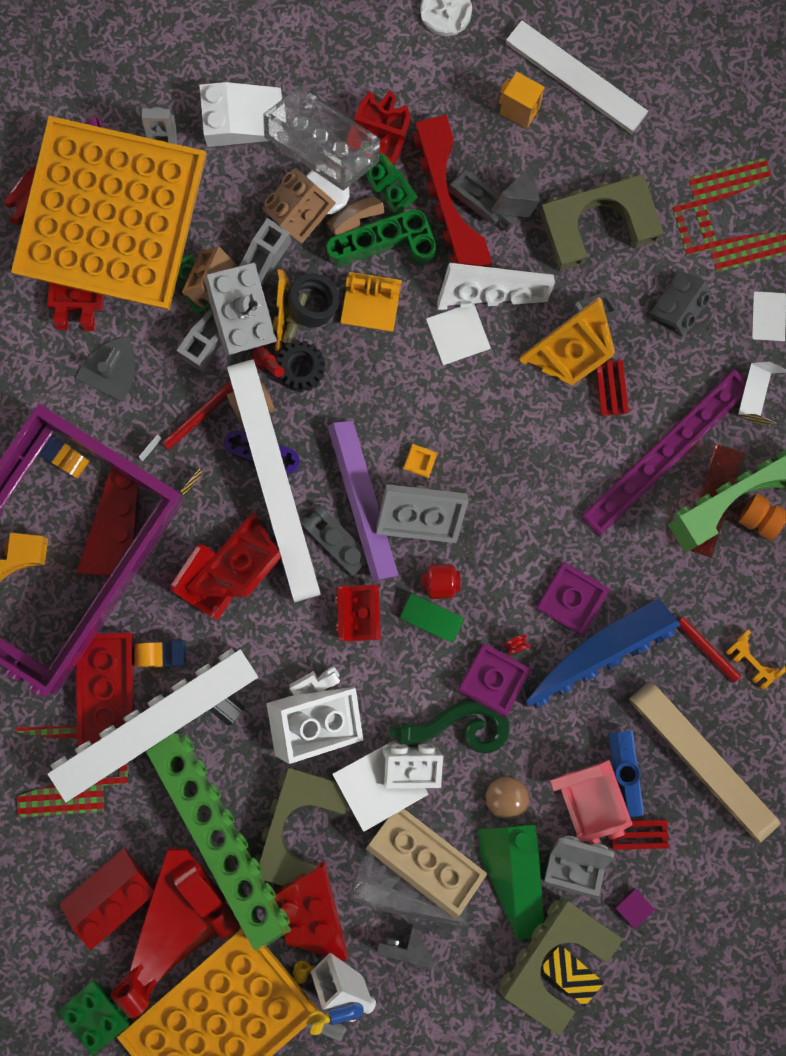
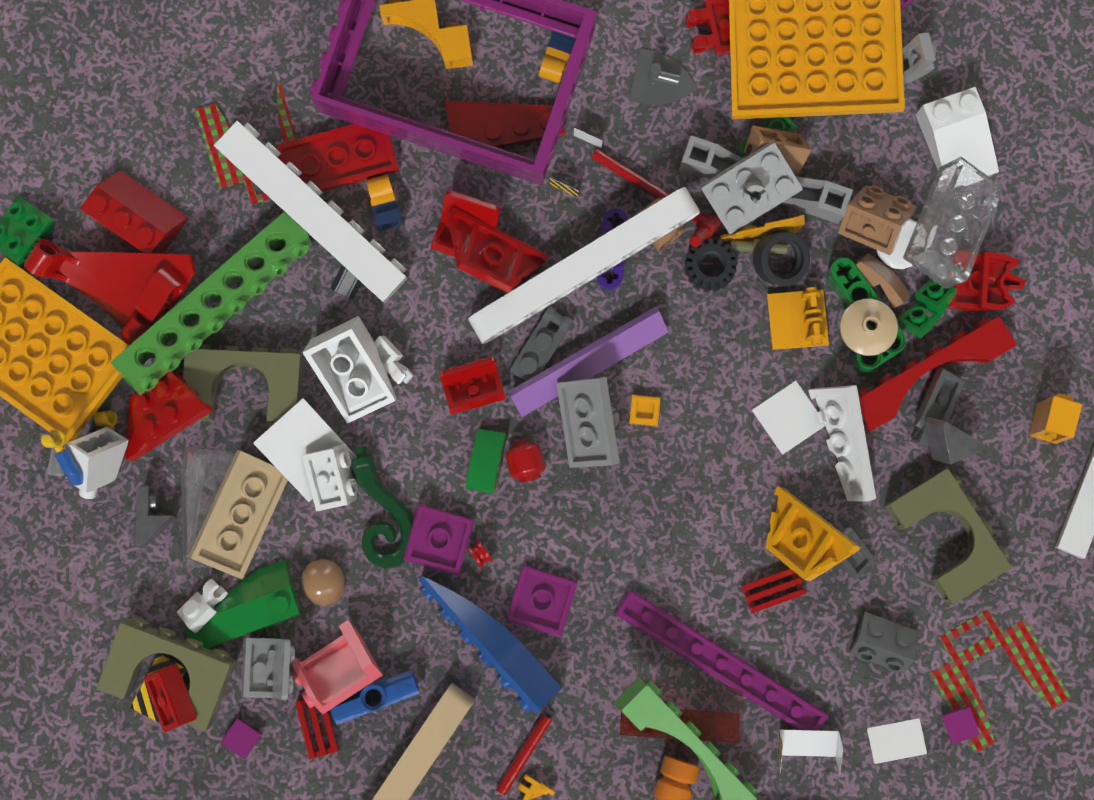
camera: 75 degrees right, 0 degrees up
(397, 251) = (859, 337): none -> tan dish
(505, 920) = (199, 607): none -> white plate
(585, 965) = (170, 697): none -> red slope
(768, 257) = (960, 724): none -> magenta tile

